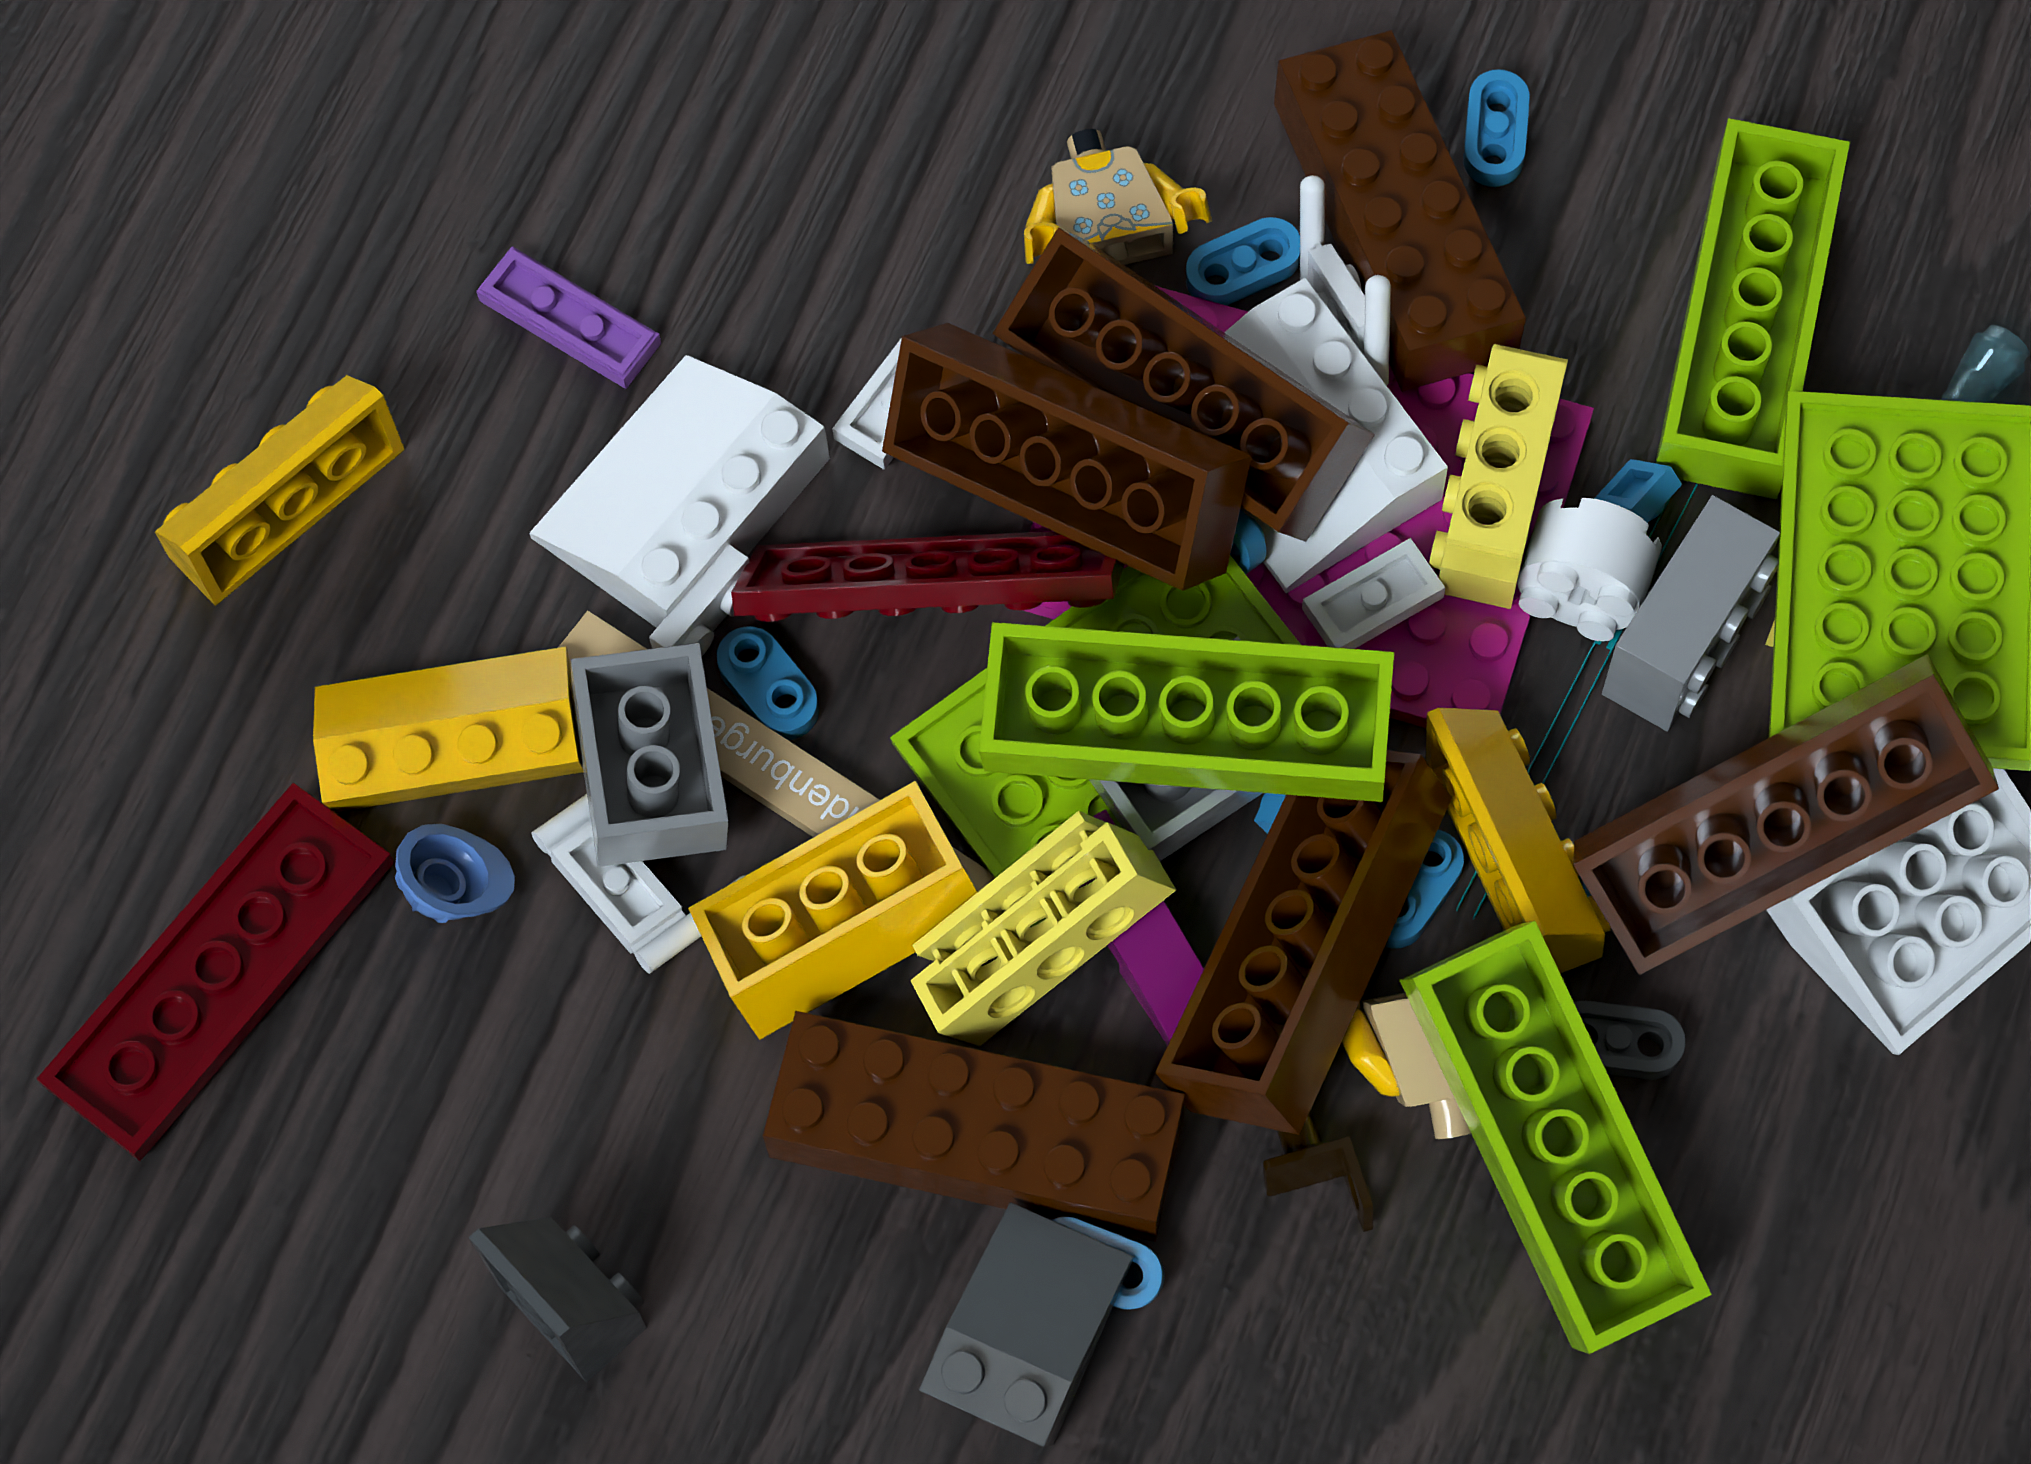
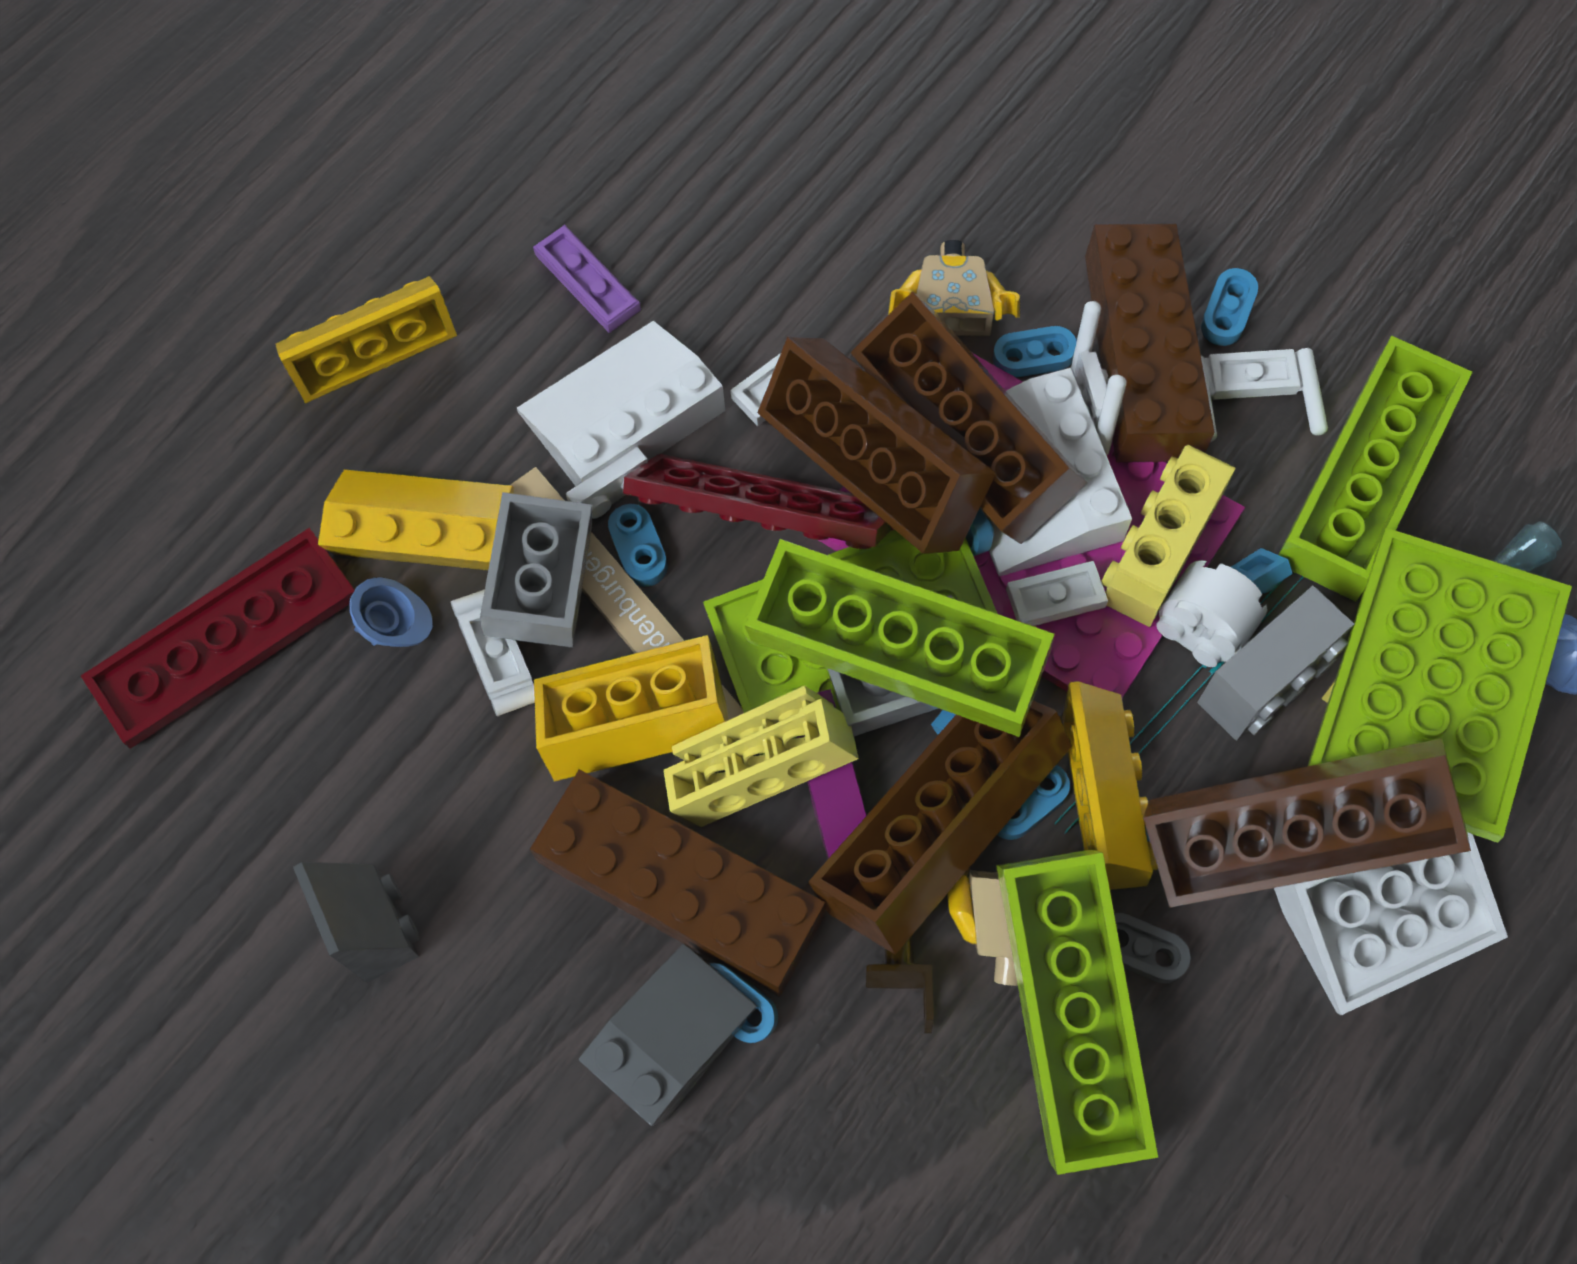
camera: 15 degrees right, 0 degrees up
(1572, 214) = (1266, 375): none -> white plate

